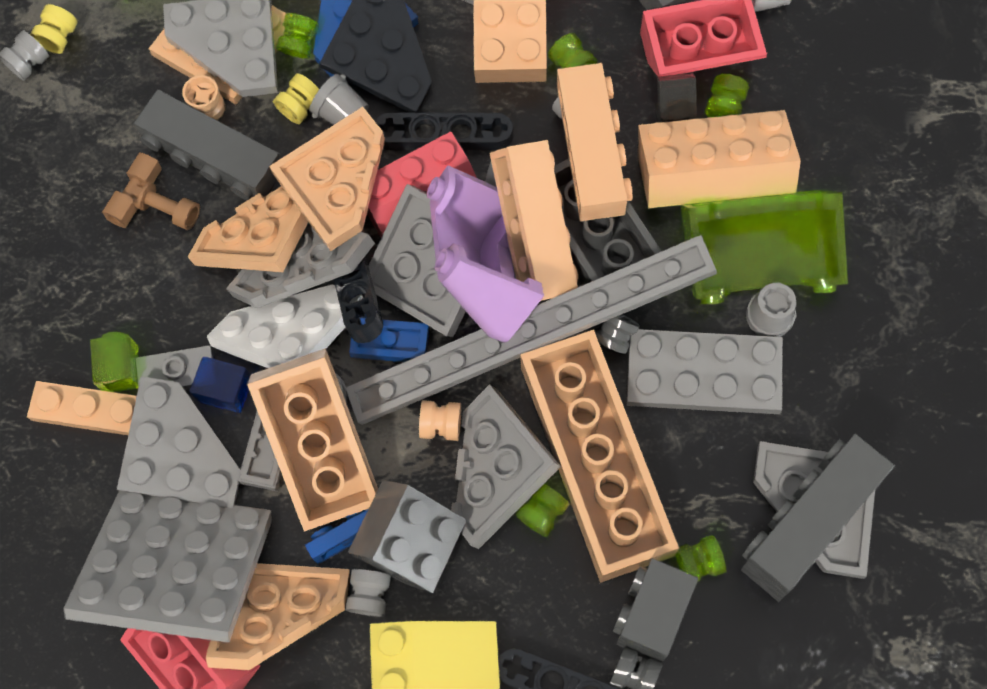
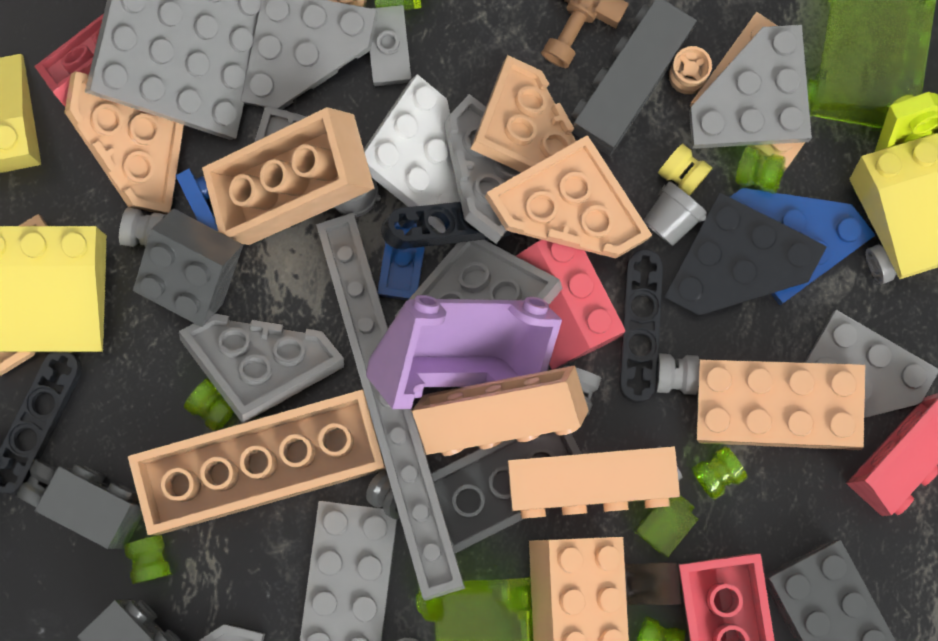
camera: 90 degrees right, 10 degrees up
(221, 384) = (365, 89): clear blue panel -> none
(440, 420) = (312, 310): light nougat wheel -> none
(486, 93) = (678, 374): none -> light grey wheel
(629, 99) = (667, 526): none -> clear neon green brick

